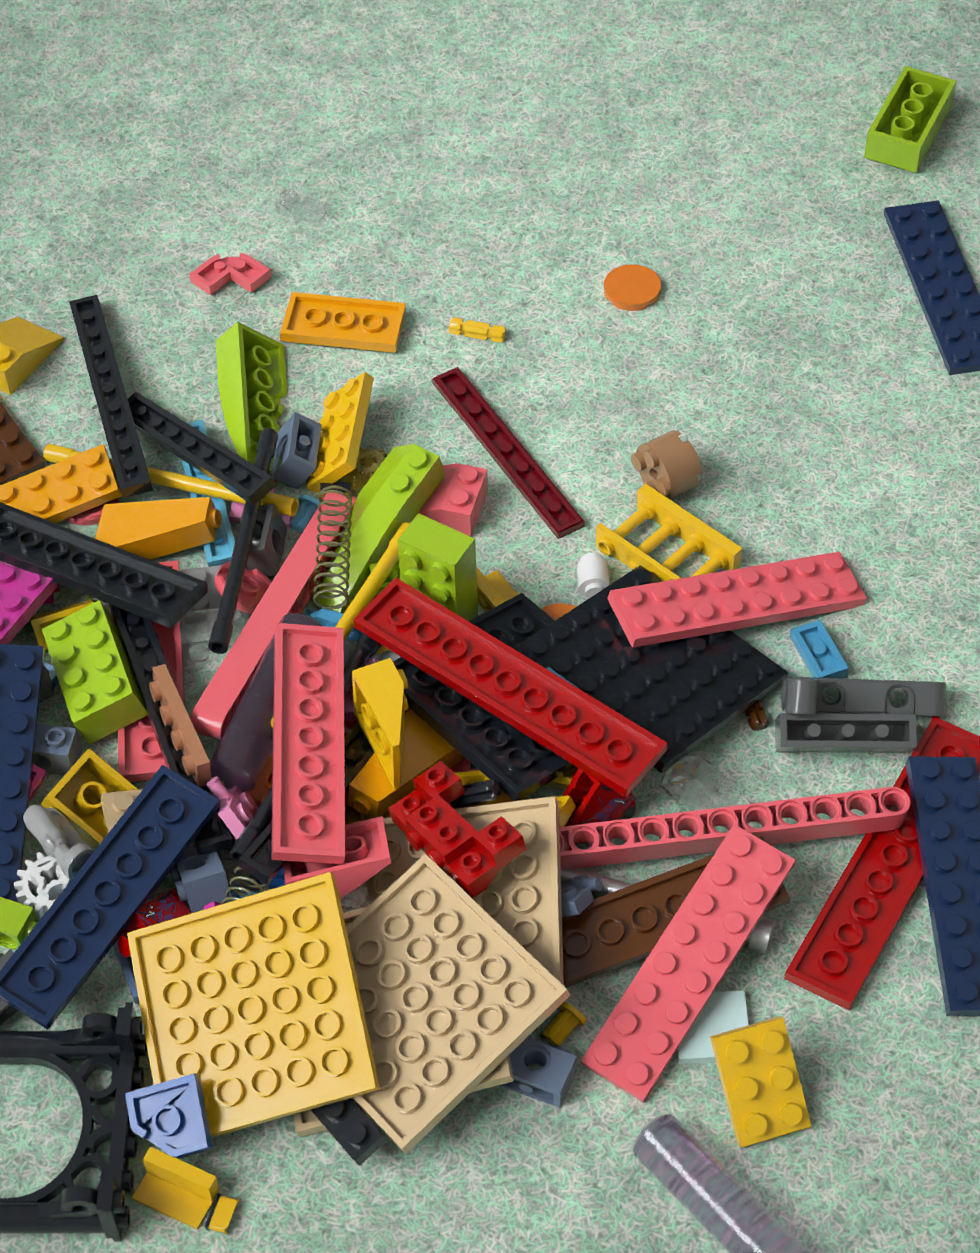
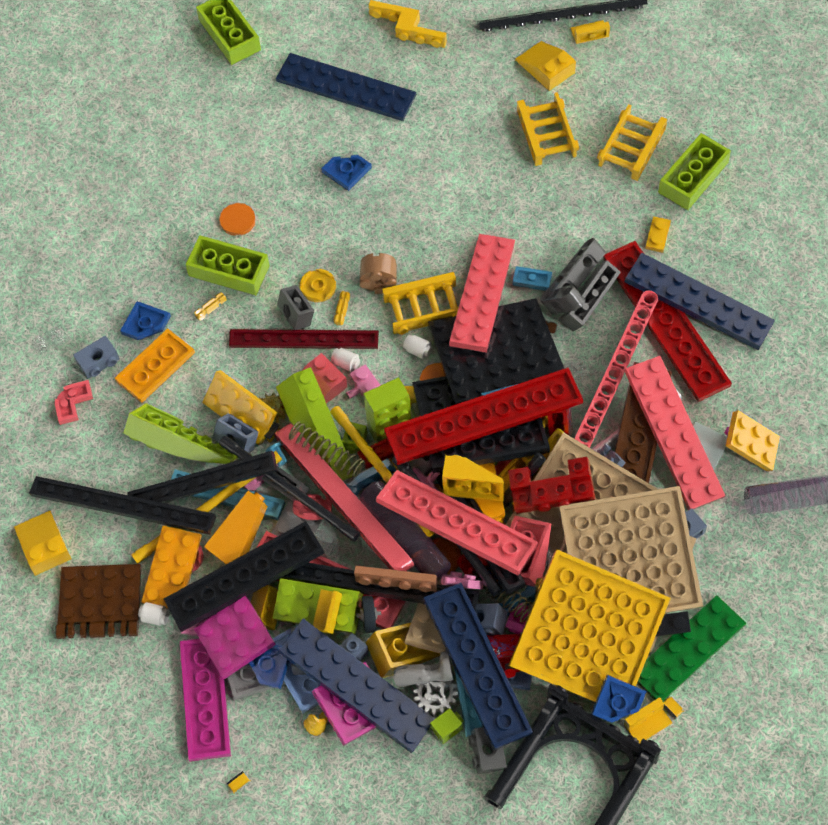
camera: 55 degrees left, 10 degrees up
(76, 674) = (327, 611): none -> yellow panel
(113, 729) = (368, 614): none -> black wheel
(309, 260) = (99, 349): none -> sand blue brick
(331, 1188) = (687, 652): none -> green plate
(399, 278) = (144, 321): none -> blue plate
(494, 550) = (363, 380): none -> bright pink plate
(507, 508) = (345, 359): none -> white brick
(540, 409) = (295, 307): none -> dark grey brick
(547, 309) = (227, 265): none -> lime brick
(587, 464) = (341, 308): none -> yellow axle
(605, 429) = (318, 285): none -> yellow tile
(809, 355) = (346, 170): none -> blue plate

